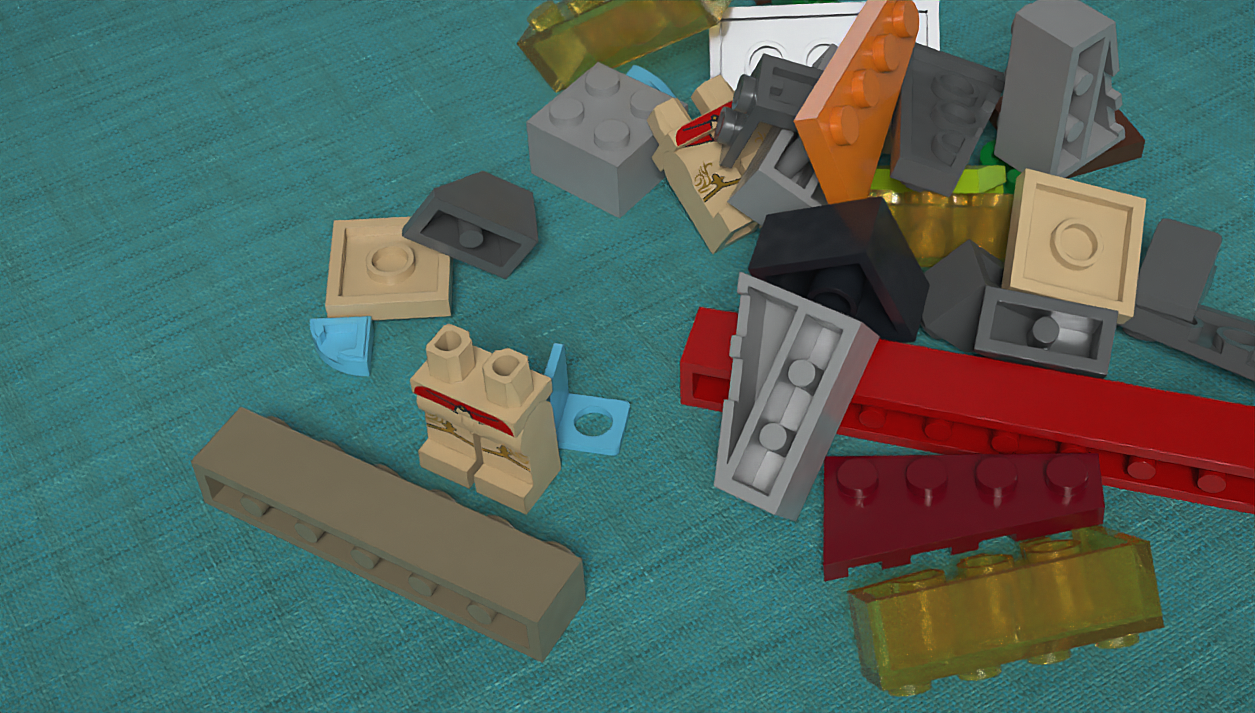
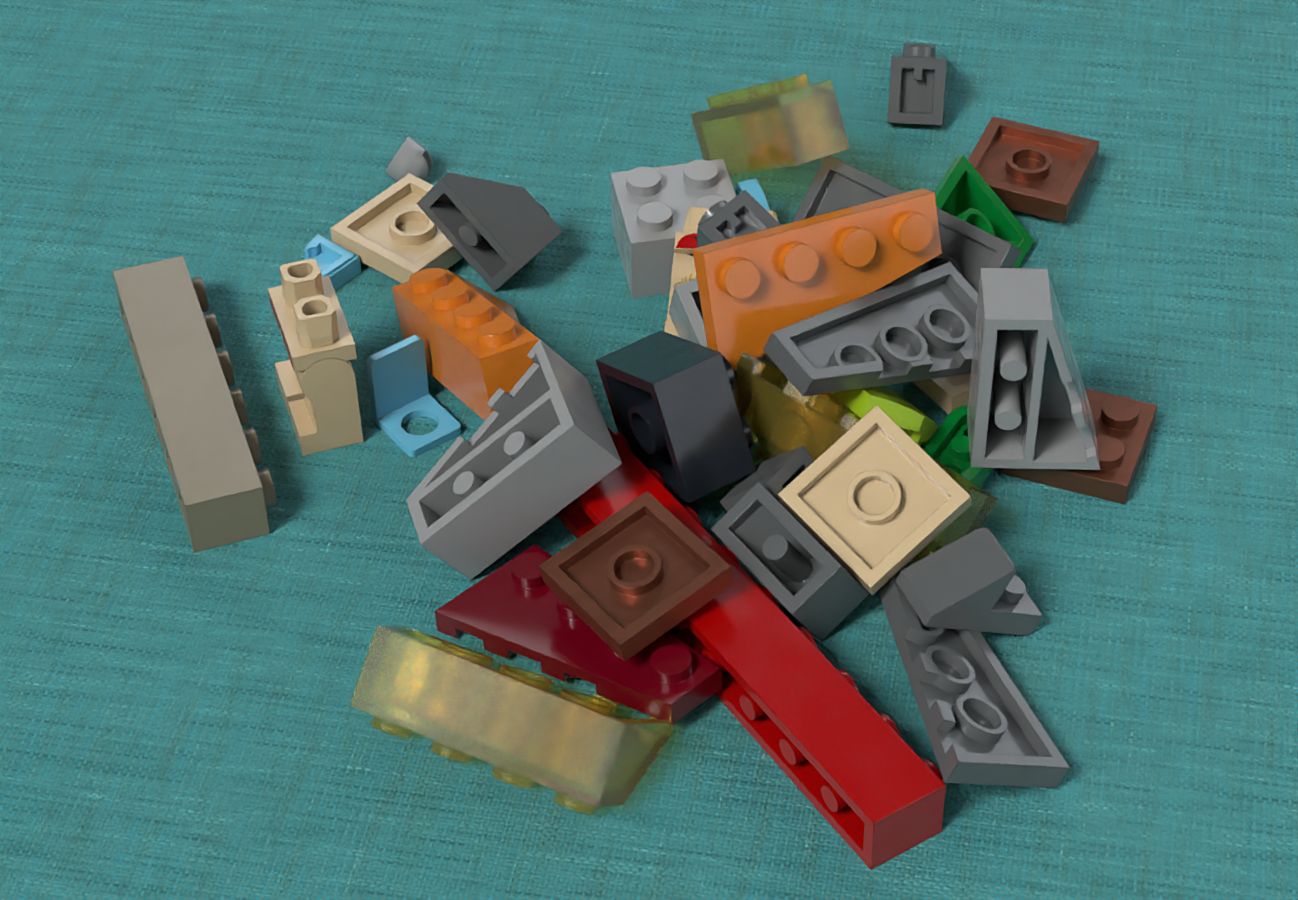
camera: 40 degrees right, 5 degrees down
(309, 214) = (411, 159): none -> light grey hinge
(612, 323) = (467, 335): none -> orange wedge
(983, 421) = (636, 575): none -> copper plate

